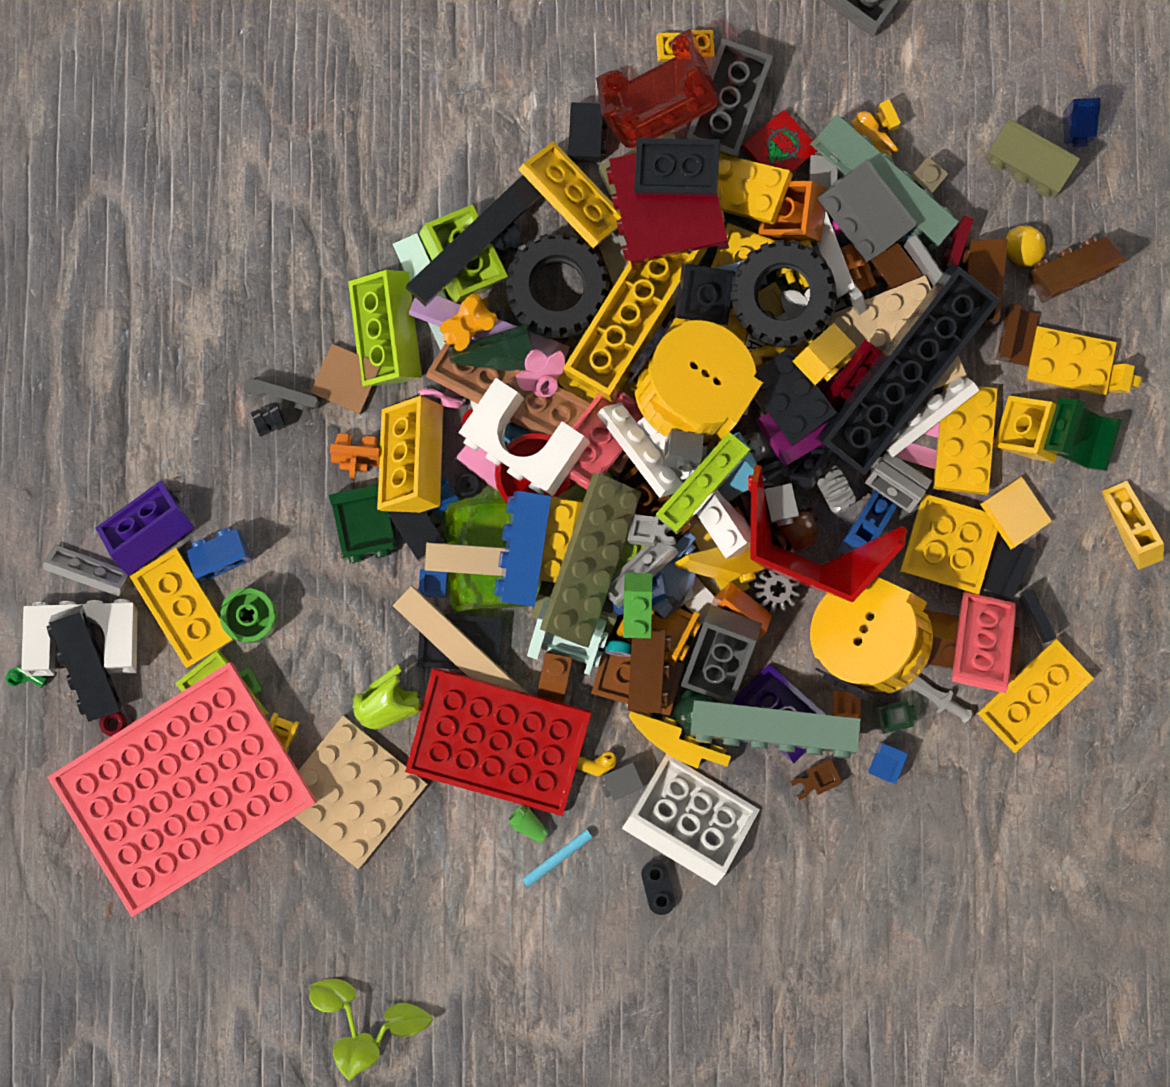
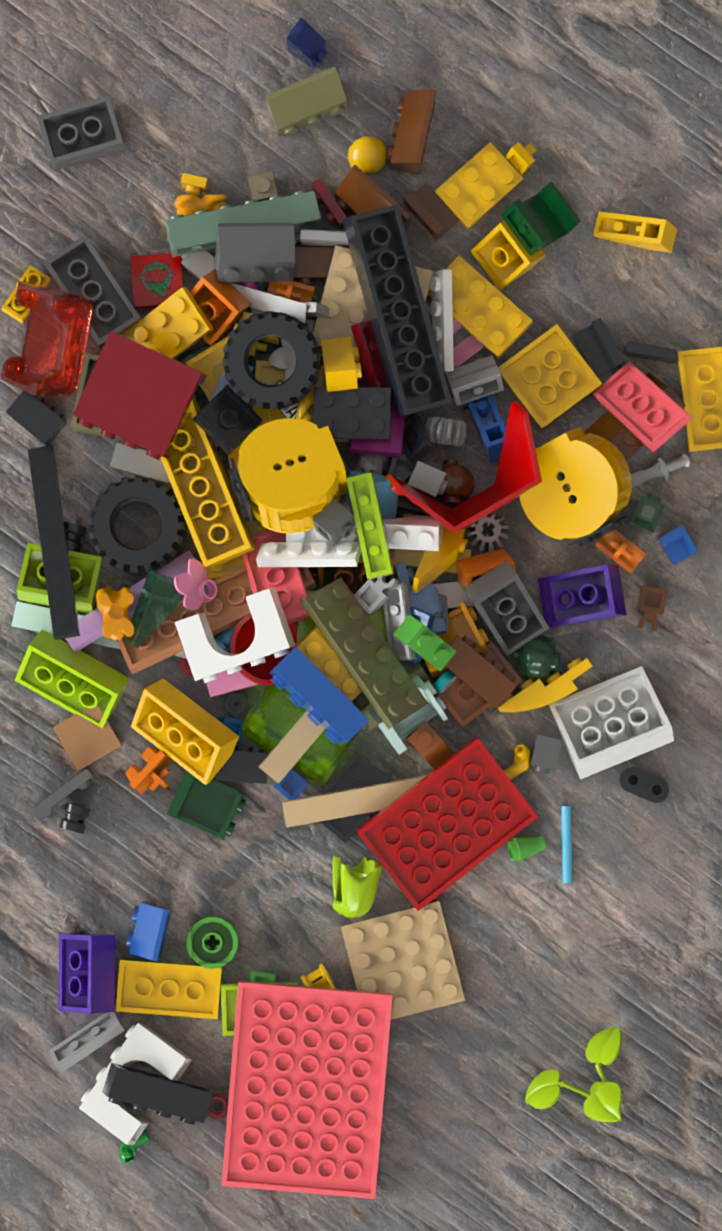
camera: 50 degrees left, 0 degrees up
(448, 399) = (160, 670): bright pink plate -> none
(572, 193) = (76, 462): yellow plate -> none
(677, 167) = (118, 368): black plate -> none
(775, 727) = (591, 608): sand green brick -> none
(1016, 513) = (562, 311): yellow tile -> none

